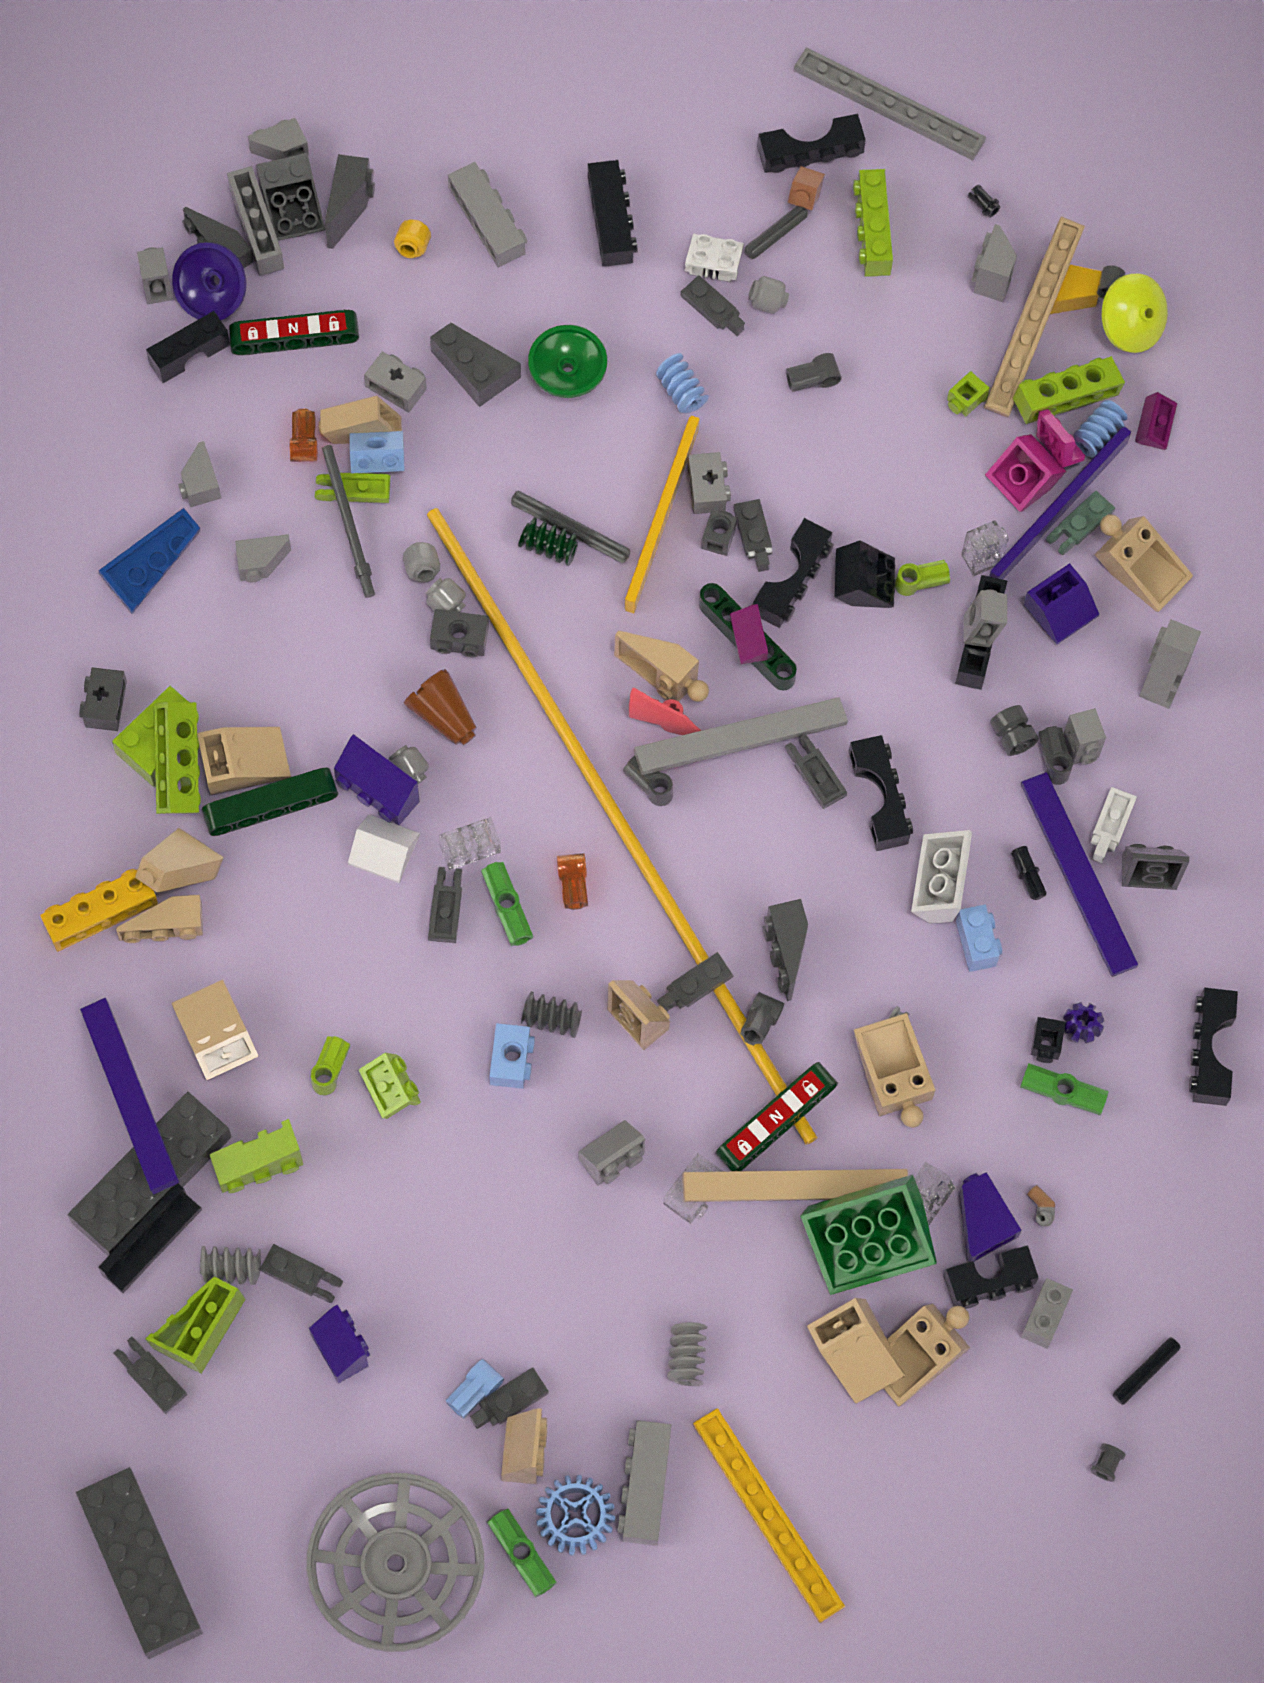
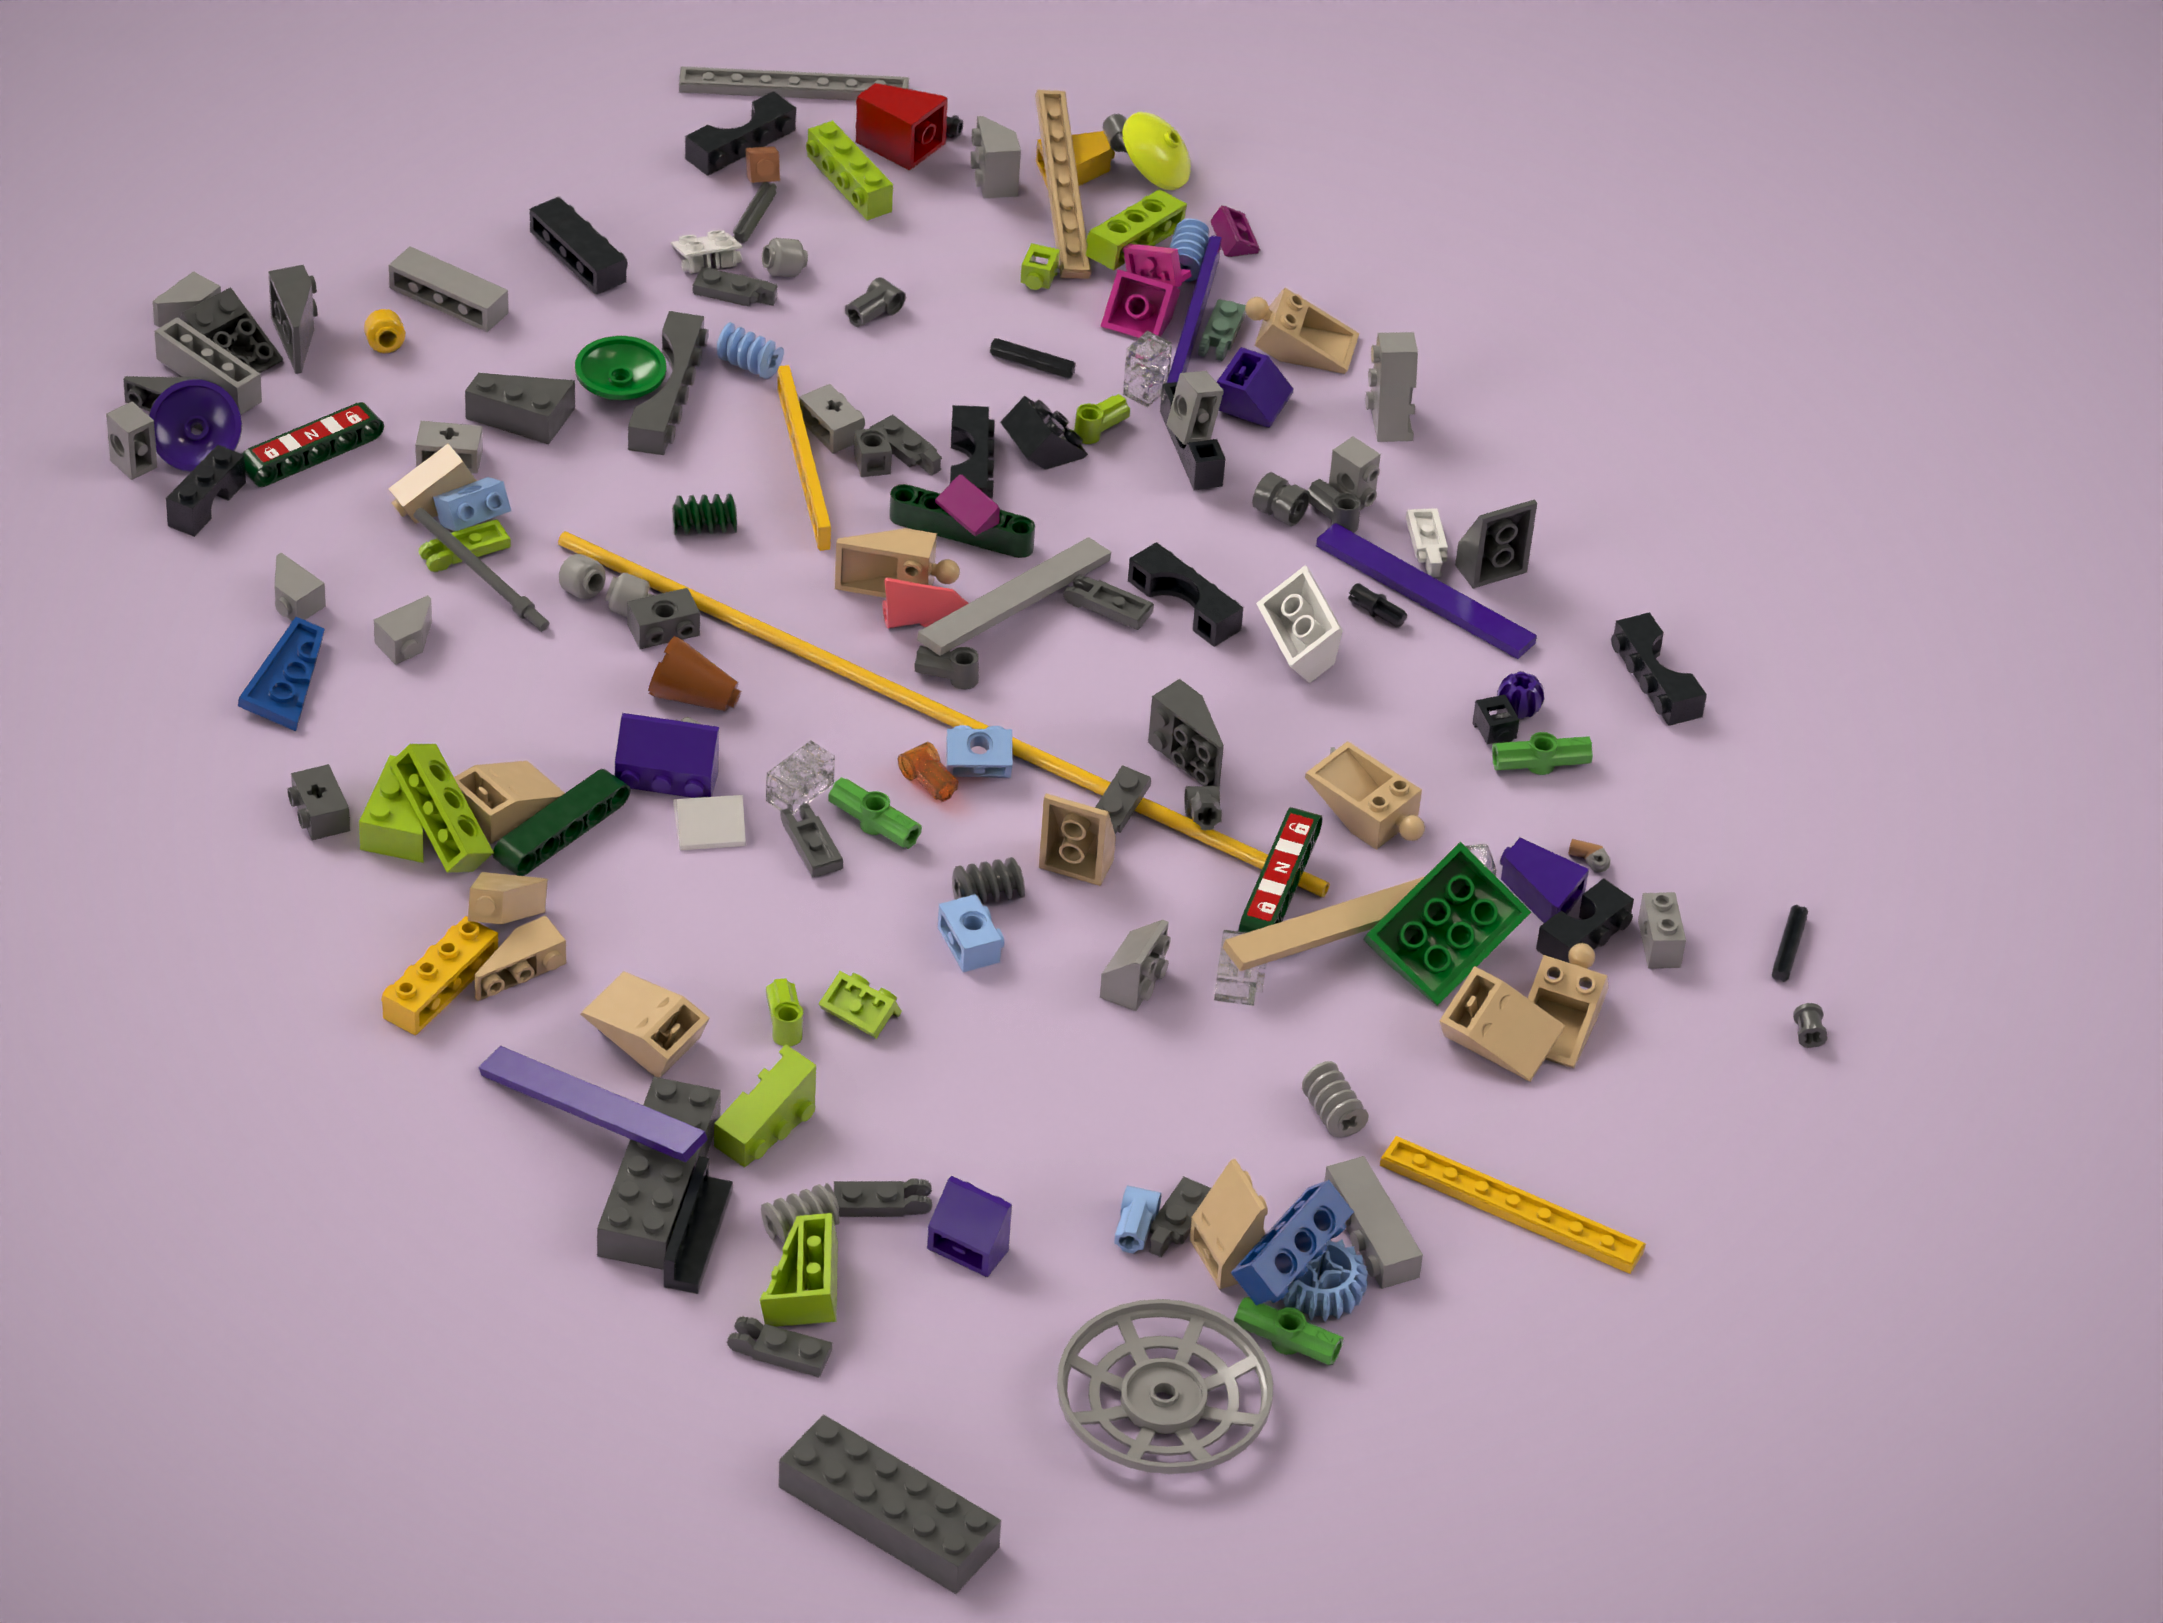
camera: 30 degrees left, 25 degrees down
(303, 441) = (384, 525): clear orange piece -> none
(541, 1487) = (1293, 1243): none -> blue brick
(562, 522) = (744, 502): dark grey axle -> none
(566, 425) = (654, 420): none -> dark grey arch
(602, 882) = (965, 763): none -> light blue brick
(908, 486) = (1032, 358): none -> black axle
(941, 193) = (901, 123): none -> red slope
(977, 937) = (1368, 668): light blue brick -> none

